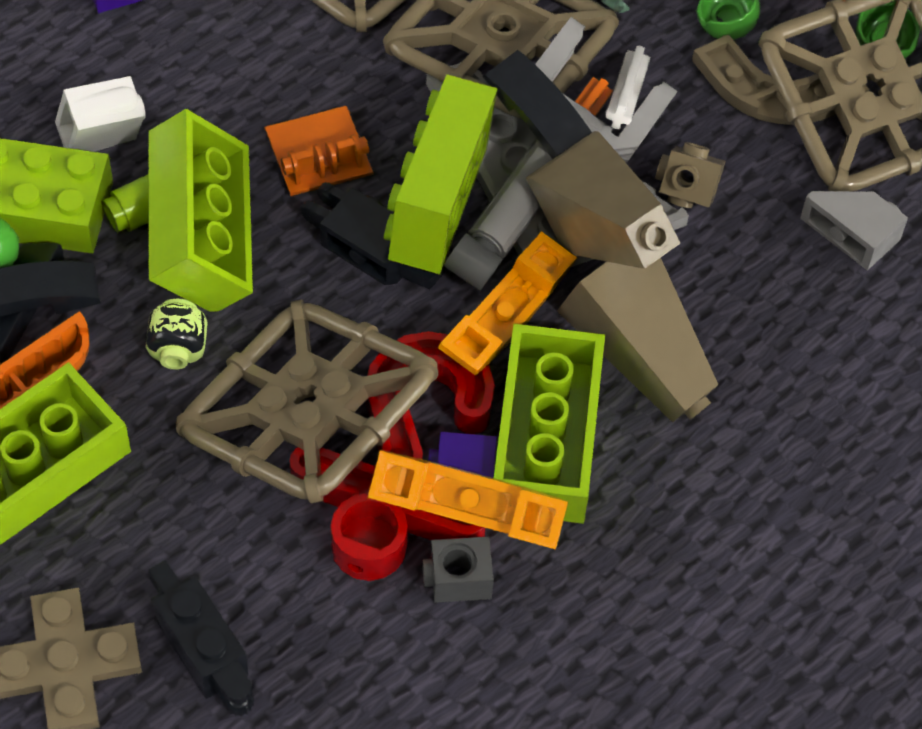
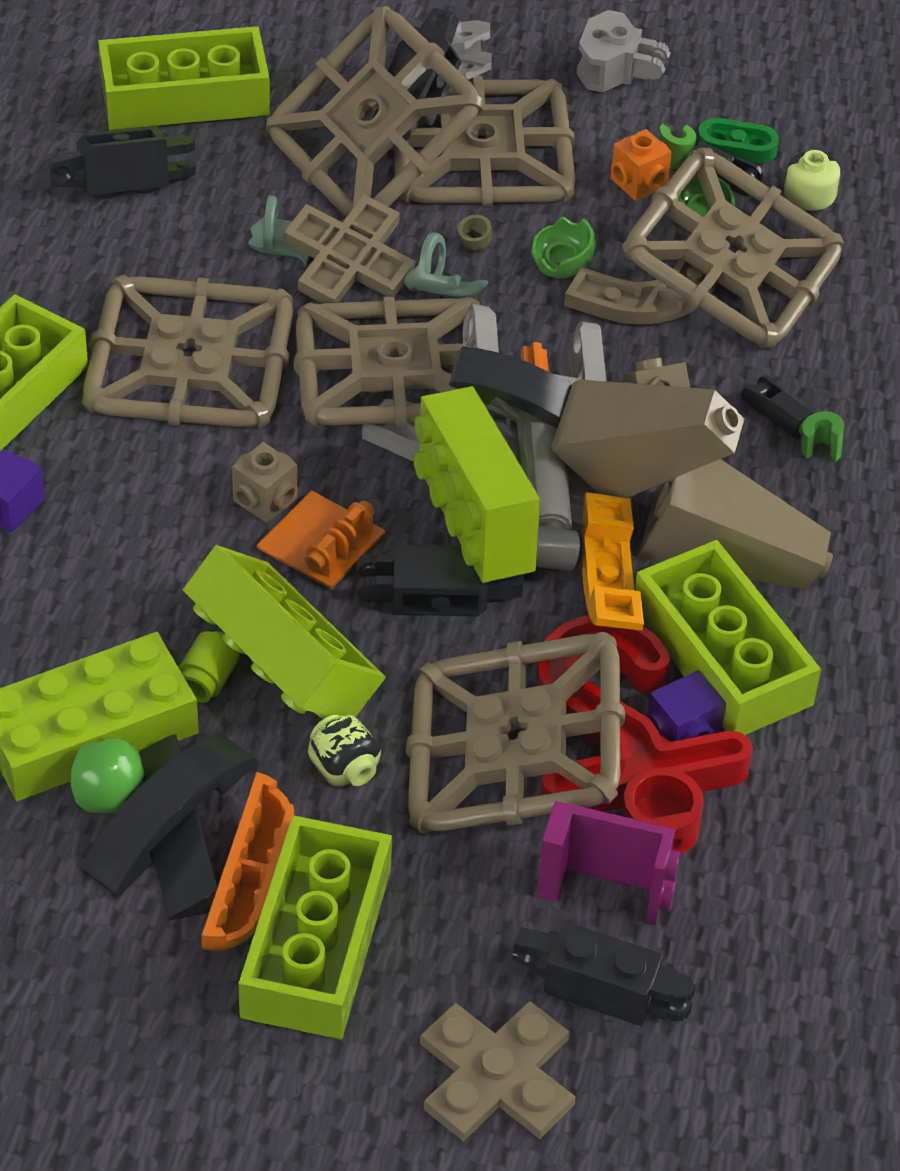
camera: 35 degrees left, 10 degrees down
(100, 115) = (114, 606): white torso -> none
(255, 512) = (611, 850): none -> magenta panel
(308, 78) = (264, 481): none -> dark tan brick
(468, 498) = (736, 721): light orange slope -> none
(468, 553) = (758, 793): dark grey brick -> none
(627, 87) = (557, 346): white axle -> none
(795, 269) = (795, 418): none -> piece
(855, 222) = (812, 358): light grey slope -> none

